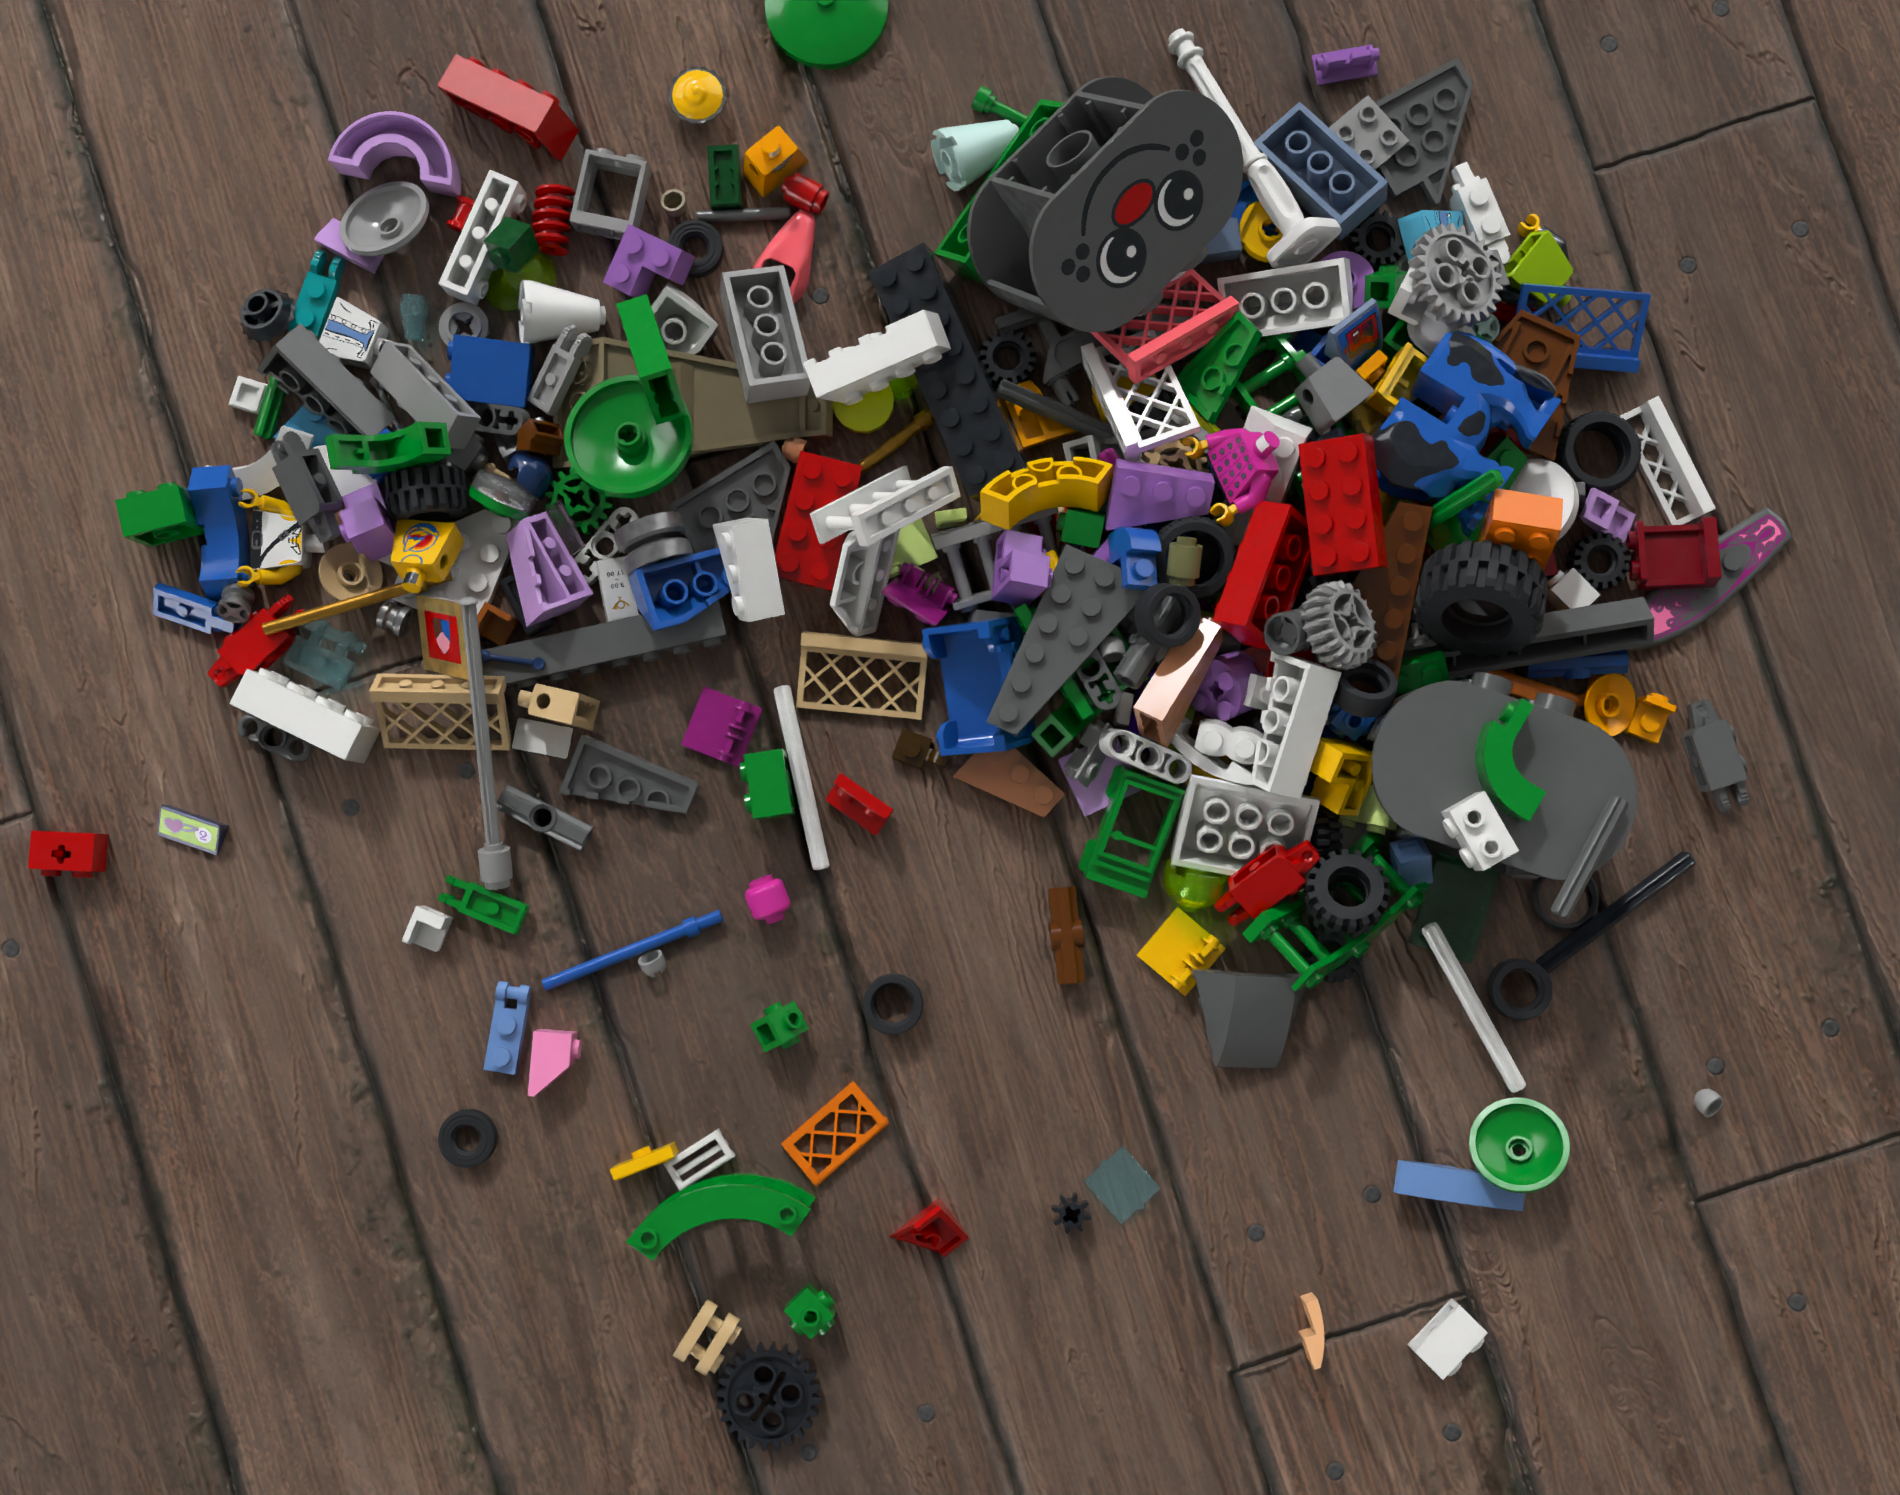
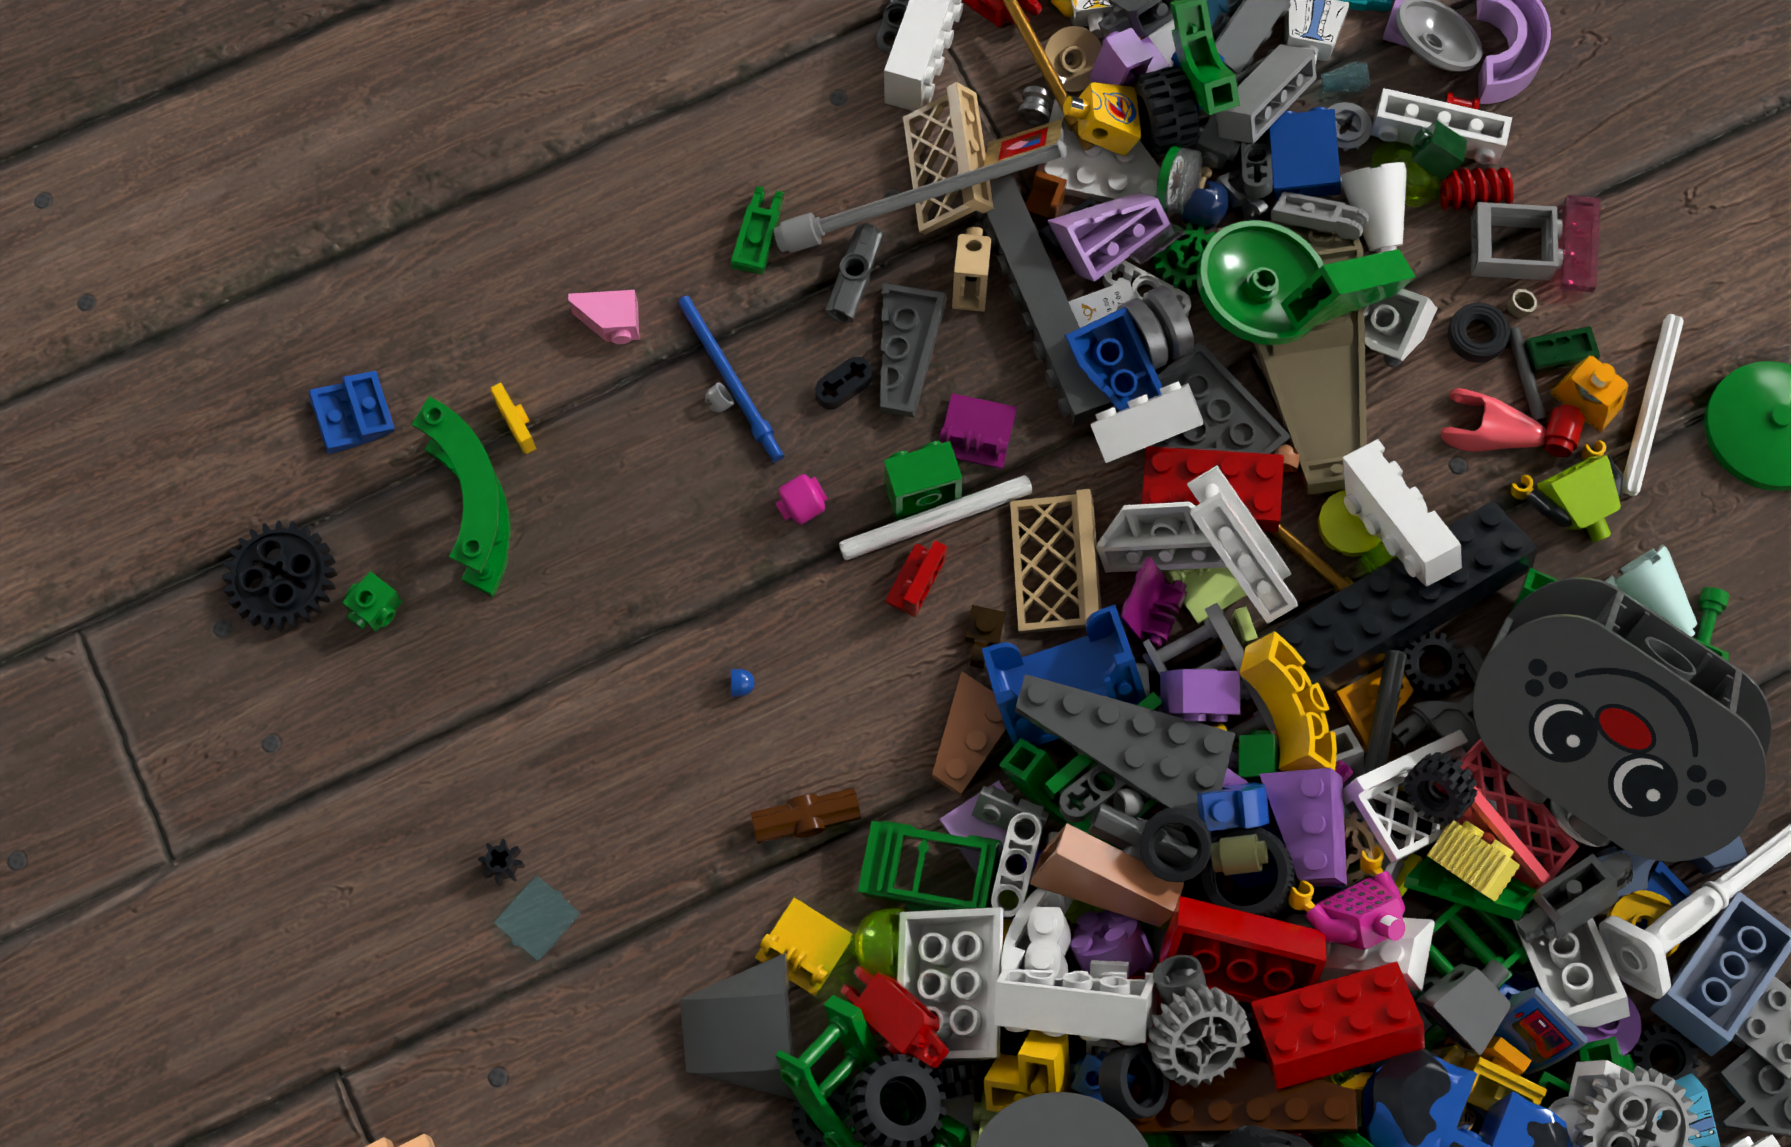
camera: 80 degrees right, 15 degrees down
(321, 663) = (978, 46): clear light blue plate -> none
(427, 928) = (727, 181): white panel -> none
(448, 1143) = (519, 269): black tyre -> none
(507, 1028) = (634, 271): medium blue plate -> none
(509, 104) = (1585, 131): wedge -> none
(538, 663) = (1011, 238): dark blue hinge -> none
(540, 438) = (1245, 203): reddish brown piece -> none
(542, 738) = (936, 262): white sticker -> none
(611, 1315) = (351, 412): none -> blue slope
(621, 135) = (1580, 243): none -> clear pink plate
(640, 259) = (1452, 276): medium lavender brick -> none
(661, 839) = (839, 377): none -> black beam
(697, 95) = (1642, 308): yellow piece -> none
(708, 1357) = (340, 522): tan brick -> none
(722, 1144) = (536, 494): white tile -> none
(764, 333) = (1402, 403): light grey brick -> none
(779, 1026) = (669, 529): green brick -> none
(794, 111) = (1651, 404): none -> white axle
(809, 1127) = (565, 579): orange window -> none
(870, 193) = (1578, 494): none -> lime torso
(887, 1027) = (695, 620): black tyre -> none
(933, 1229) = (470, 721): red slope -> none
(934, 976) = (741, 682): none -> blue hinge
(1144, 375) = (1450, 777): none -> black tyre
(1206, 359) = (1473, 859): none -> light yellow brick
(1249, 280) = (1576, 896): none -> dark grey hinge

